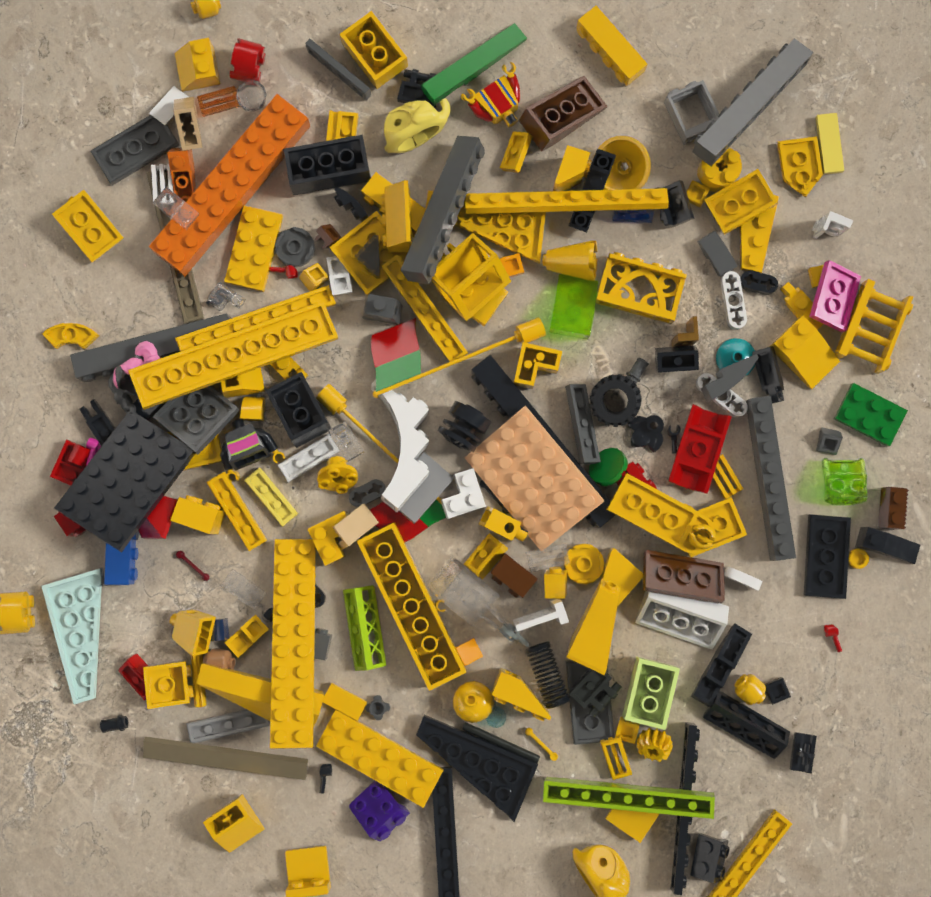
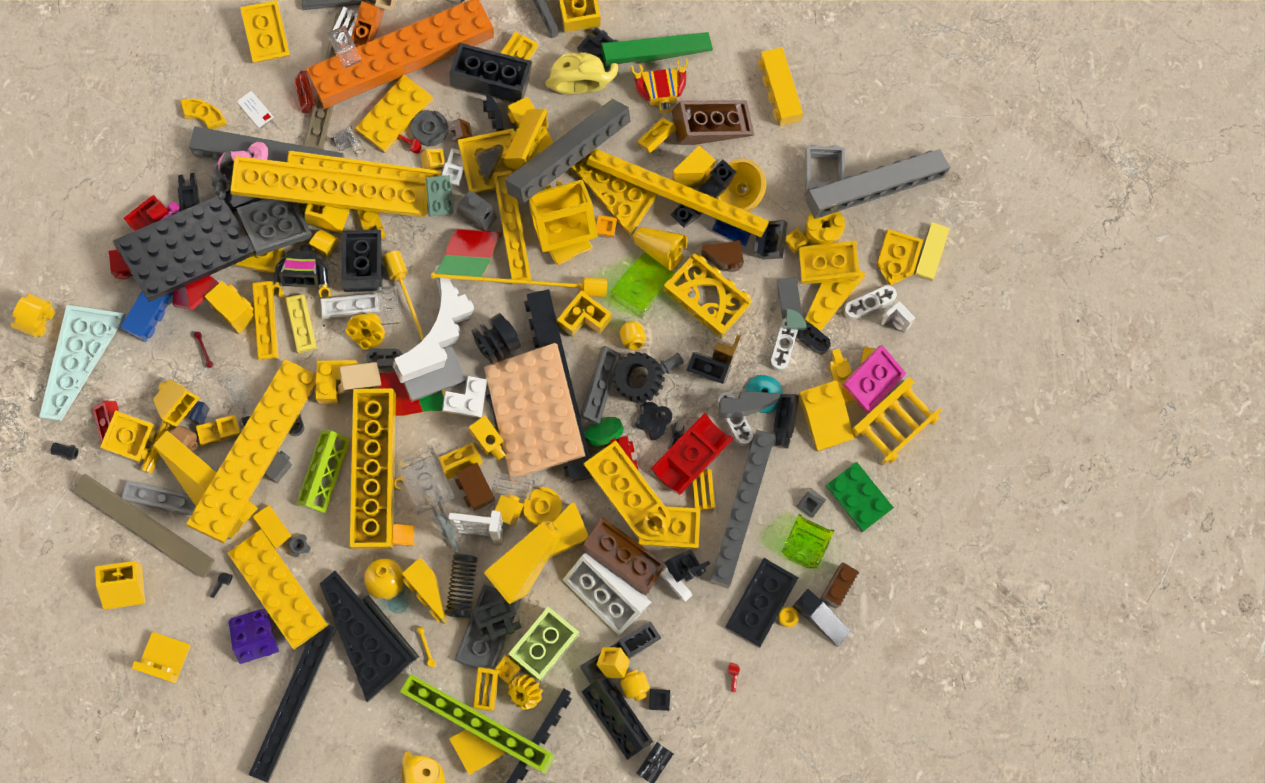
camera: 15 degrees right, 10 degrees down
(118, 307) = (255, 109): none -> white sticker
(157, 268) = (304, 92): none -> clear red tile
(340, 311) = (439, 195): none -> sand green hinge
(589, 361) = (632, 335): none -> yellow head
(638, 241) = (724, 255): none -> reddish brown slope
(722, 680) = (613, 662): none -> yellow panel
(734, 274) = (794, 320): none -> sand green tile
(746, 559) = (685, 566): none -> black bracket
(799, 208) = (873, 295): none -> white beam

